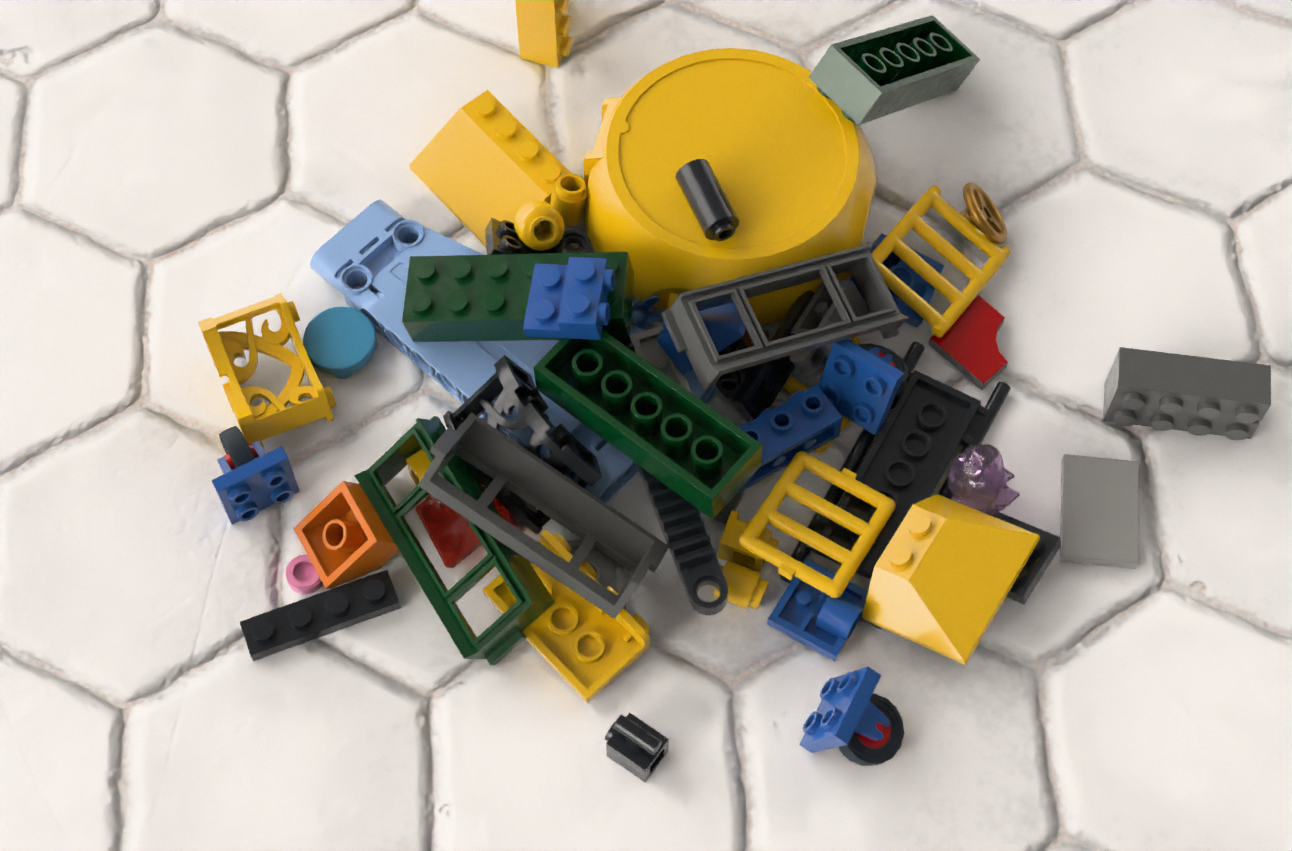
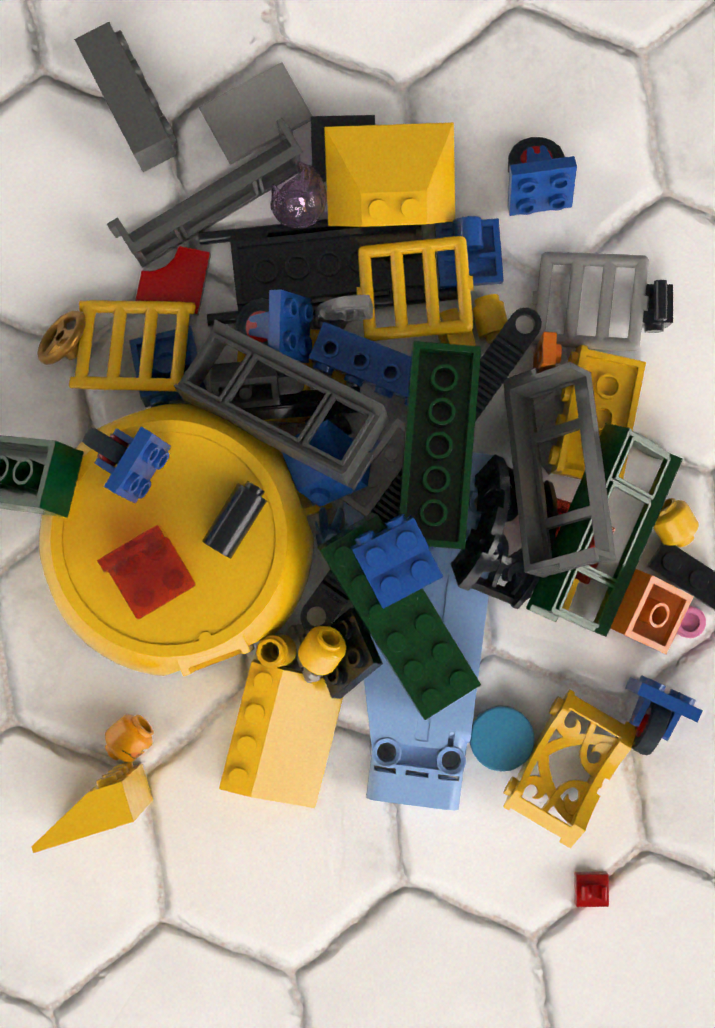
camera: 125 degrees left, 25 degrees up
(146, 331) = (591, 889): none -> red tile
(408, 618) = (676, 523): none -> yellow head
(586, 62) = (128, 738): none -> light orange head
(661, 596) = (547, 352): none -> orange plate
(712, 727) = (609, 263): none -> light grey bar
(714, 111) = (148, 571): none -> clear red bracket
(824, 142) = (134, 464): none -> blue plate
(838, 446) = (343, 310): none -> light grey tile
(1031, 406) = (214, 201): none -> dark grey piece

